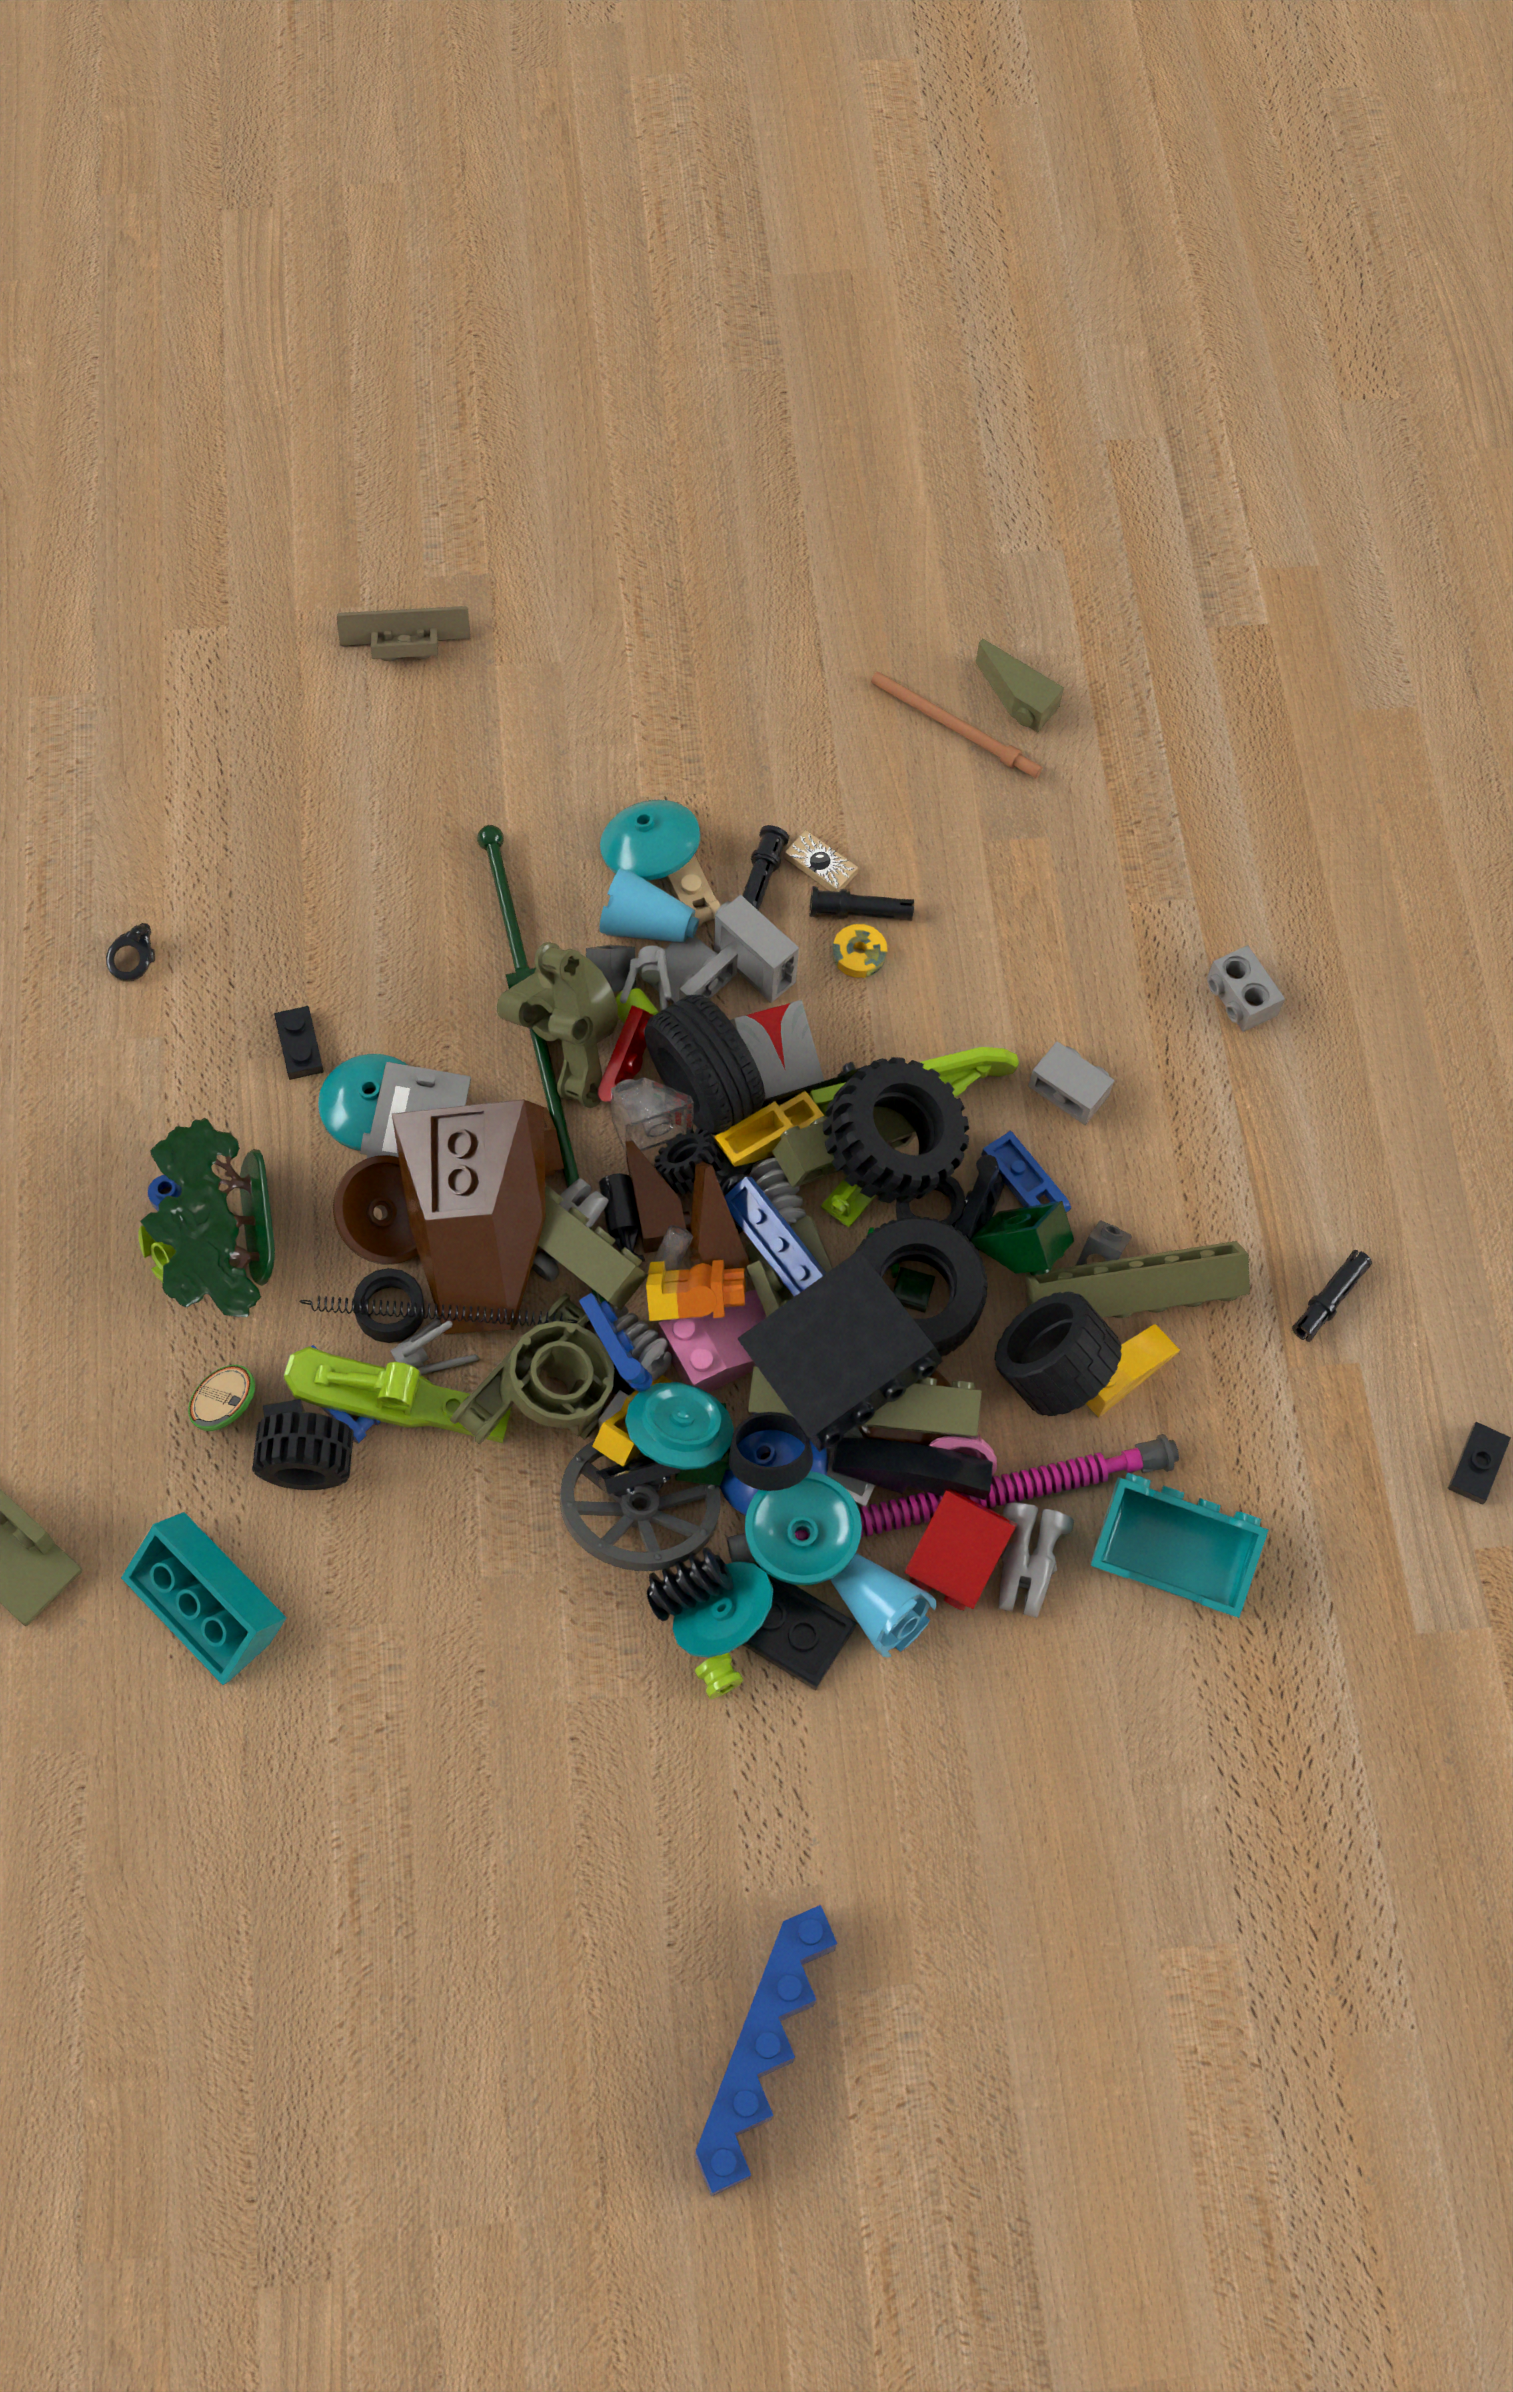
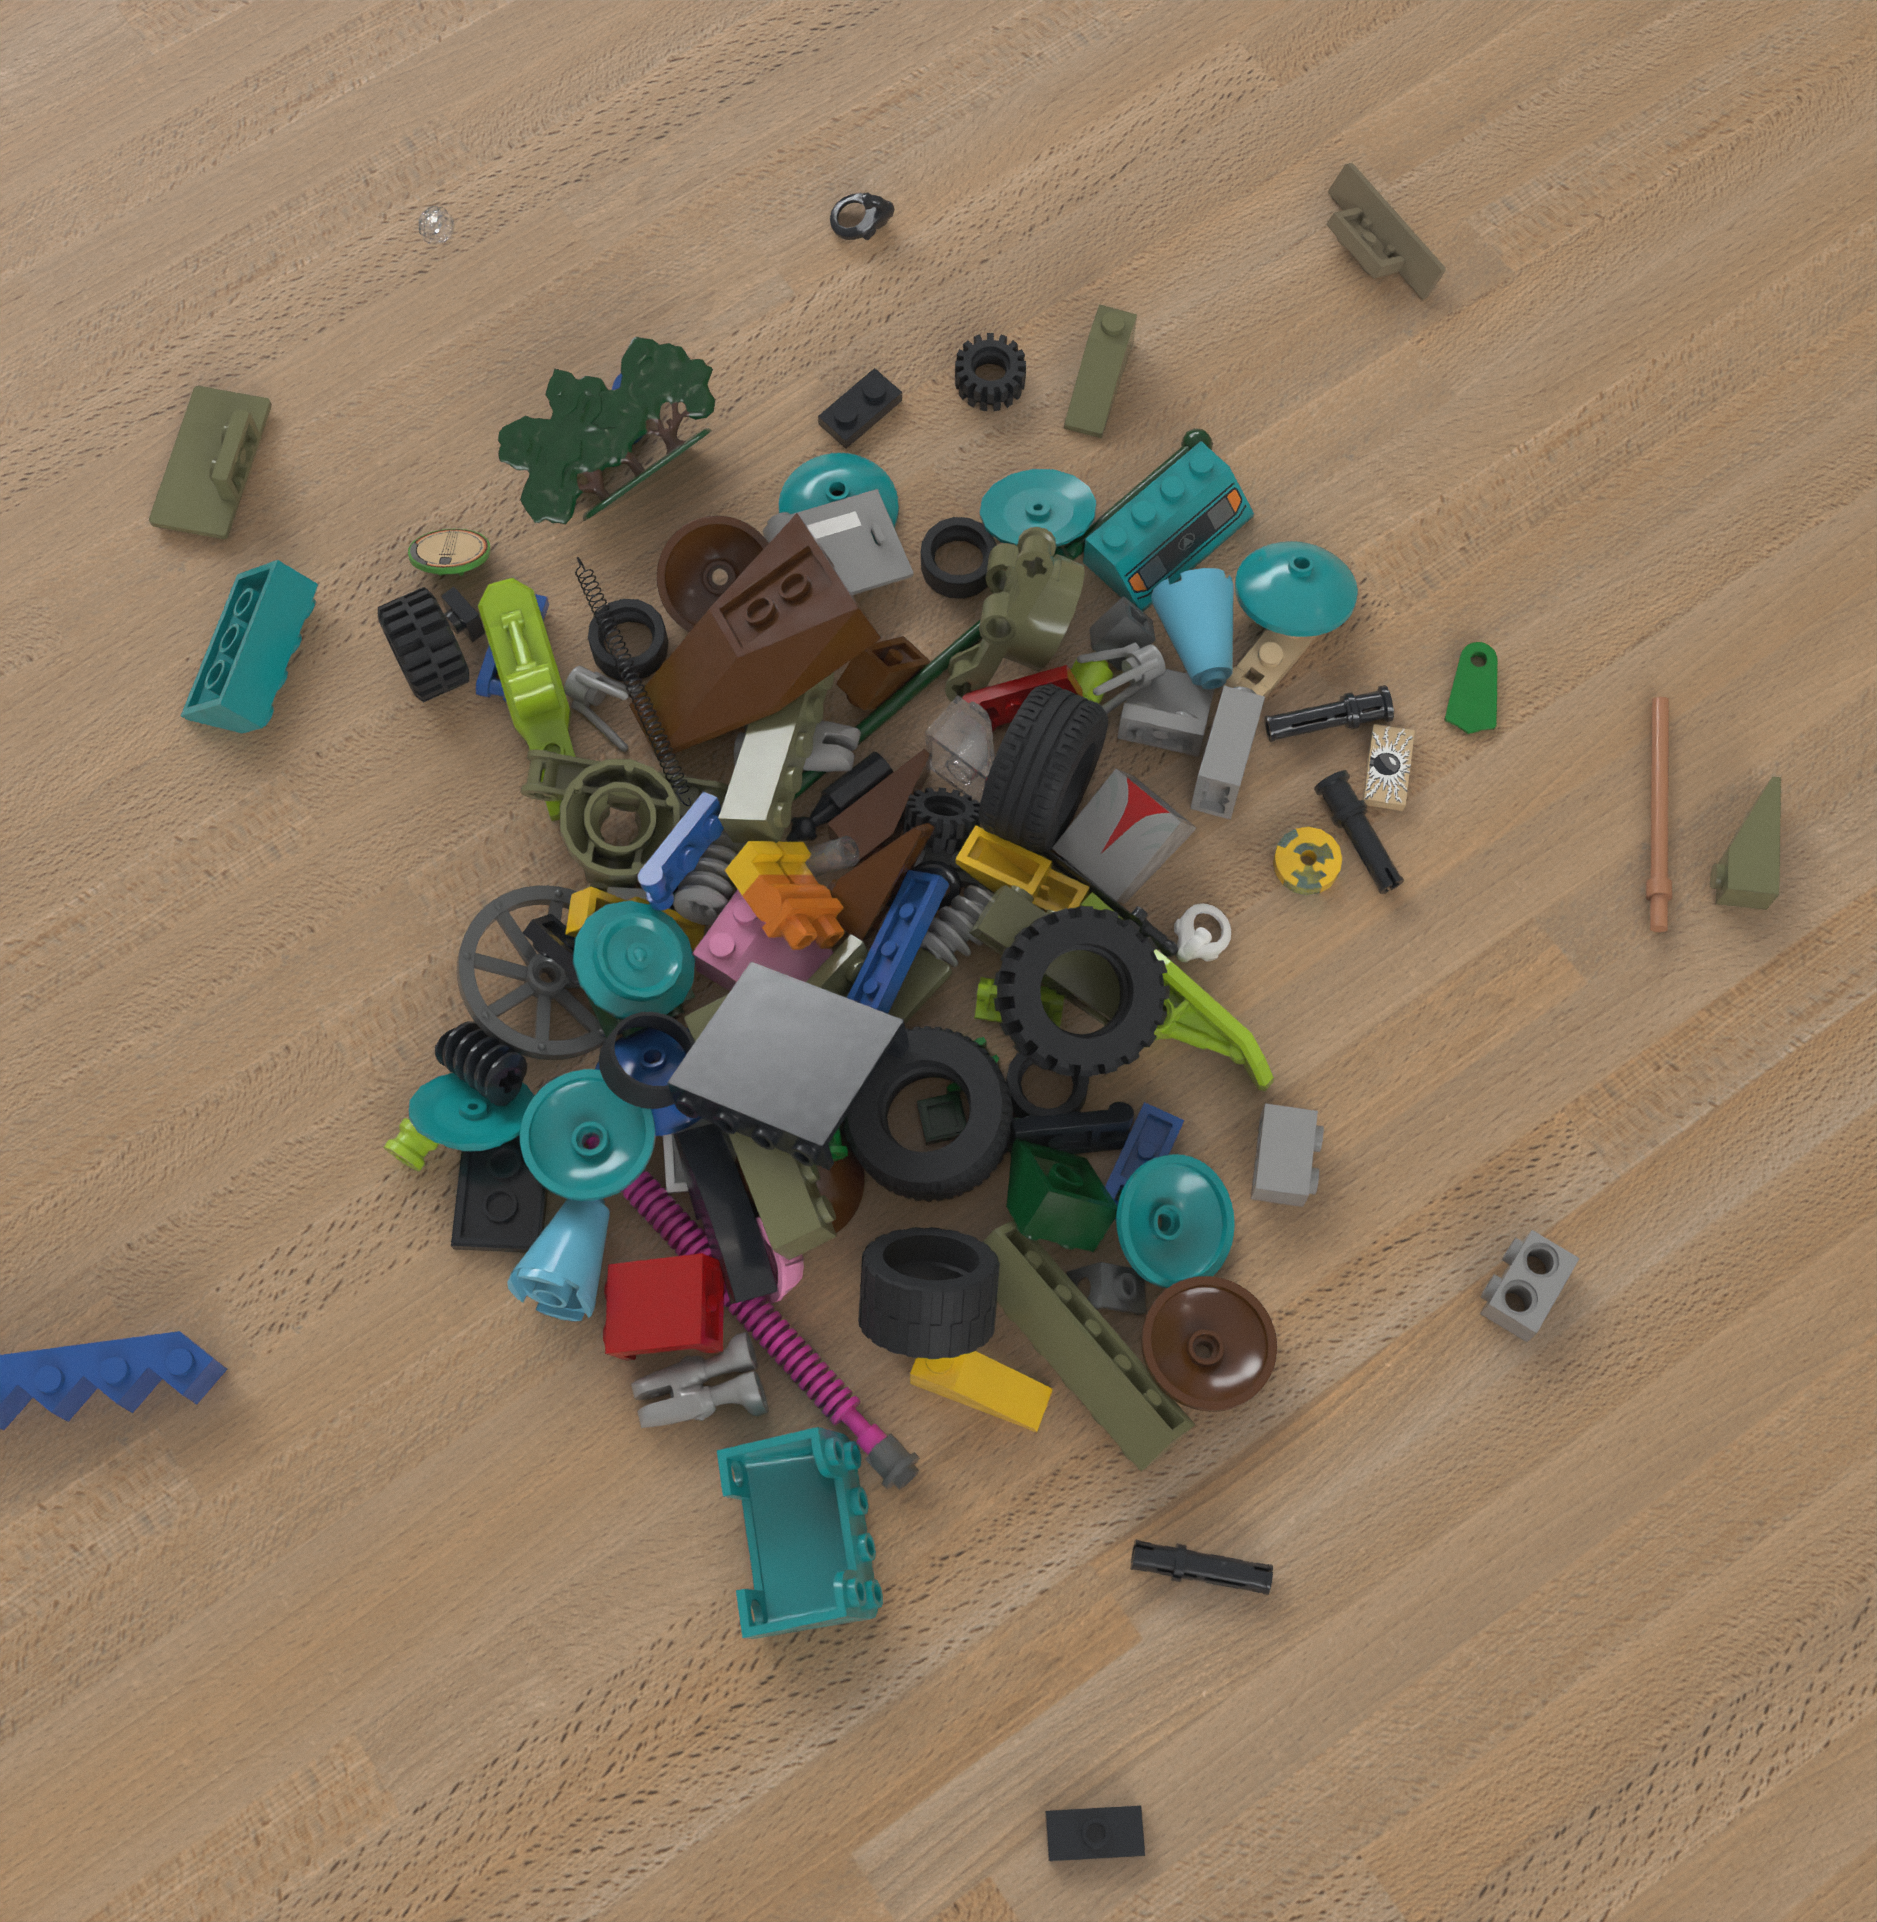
camera: 65 degrees right, 5 degrees up
(329, 921) = (990, 352): none -> black tyre
(387, 864) = (1101, 370): none -> olive slope
(473, 1017) = (956, 530): none -> black tyre
(476, 965) = (1038, 500): none -> teal piece
(546, 888) = (1168, 526): none -> teal slope
(796, 779) = (1474, 691): none -> green piece
(869, 1053) = (1197, 943): none -> white piece
(1085, 1174) = (1194, 1218): none -> teal dish
(1186, 1185) = (1225, 1321): none -> reddish brown dish

